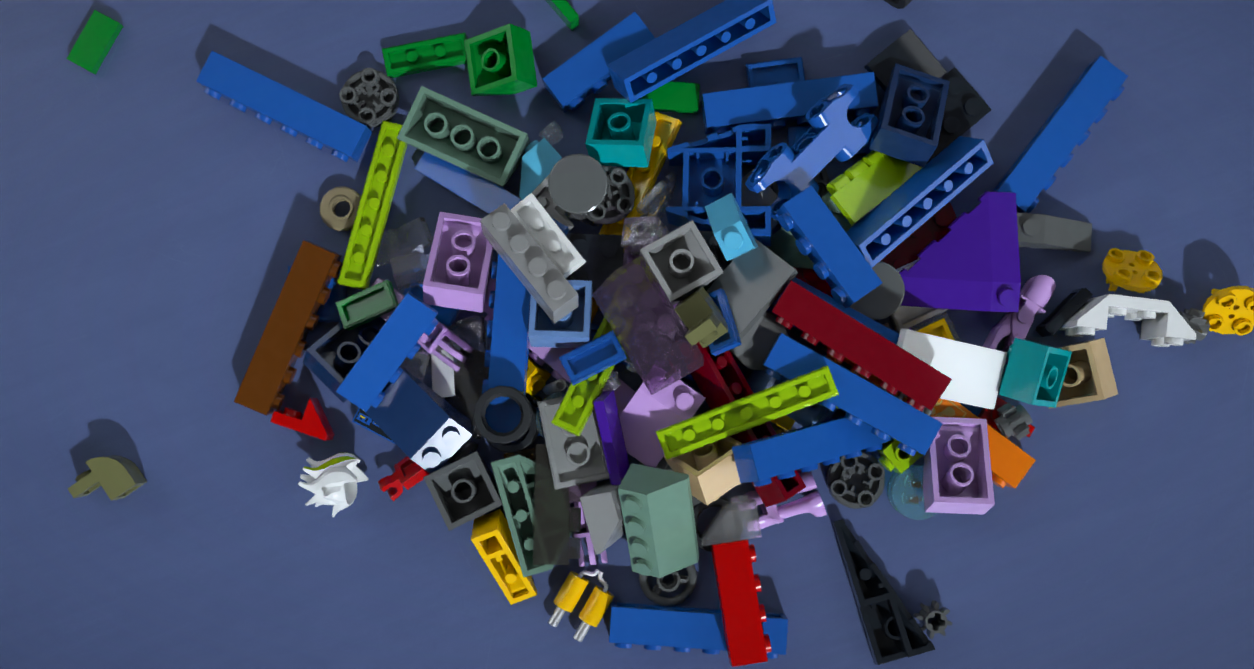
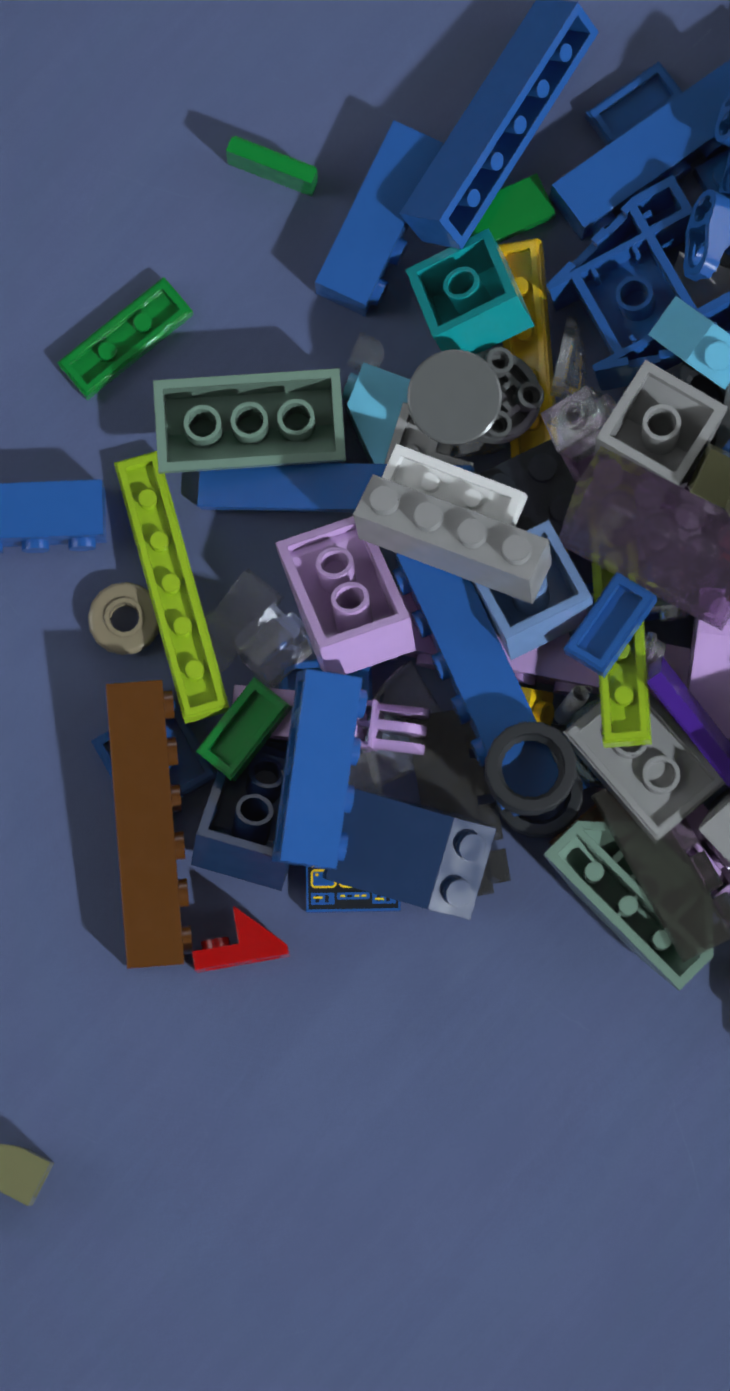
camera: 25 degrees left, 5 degrees down
(333, 480) = (329, 1006): white hair -> none
(370, 97) = (77, 439): dark grey tile -> none
(406, 474) = (427, 940): red plate -> none
(442, 376) = (403, 774): white sticker -> none
(464, 490) = (526, 916): dark grey slope -> none
(496, 547) = (632, 985): yellow slope -> none
(501, 61) = (240, 291): green slope -> none

